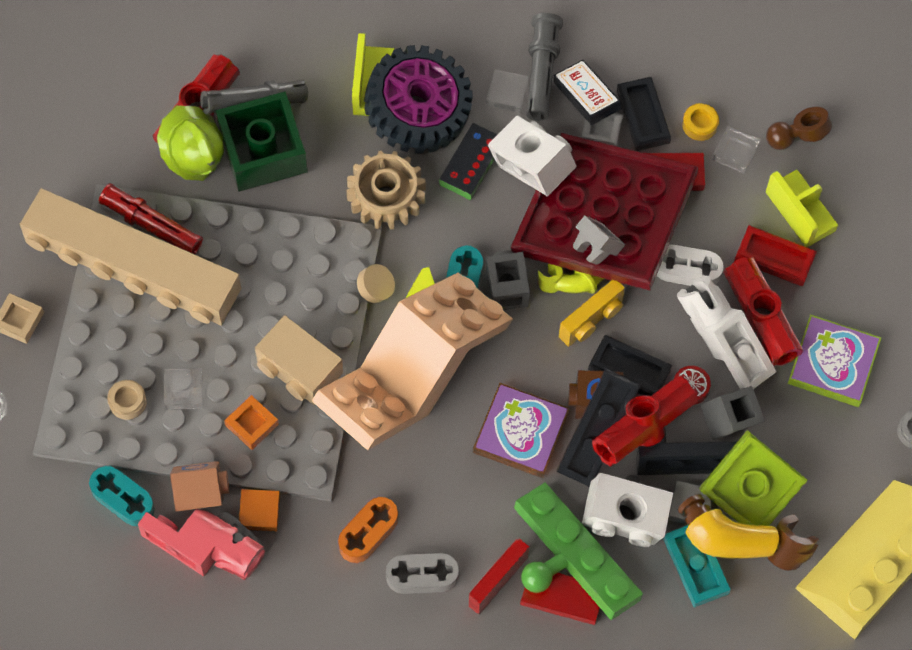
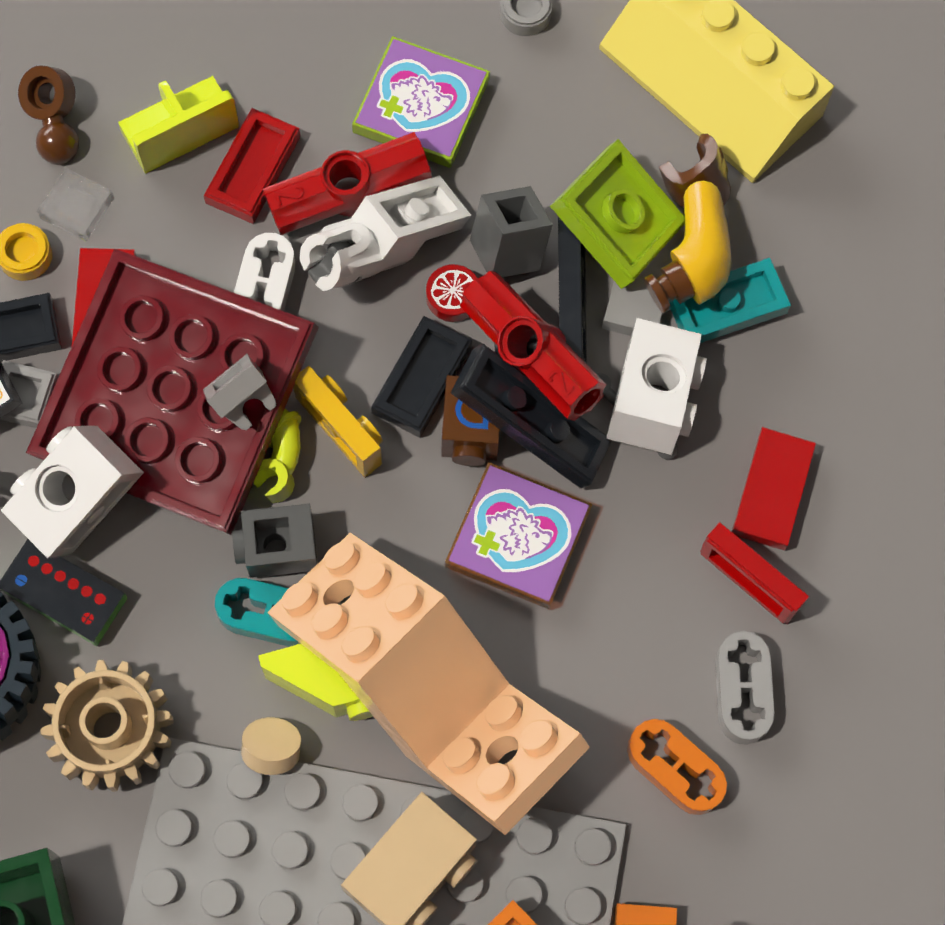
camera: 90 degrees left, 5 degrees up
(575, 551) = (716, 463): bright green plate -> none

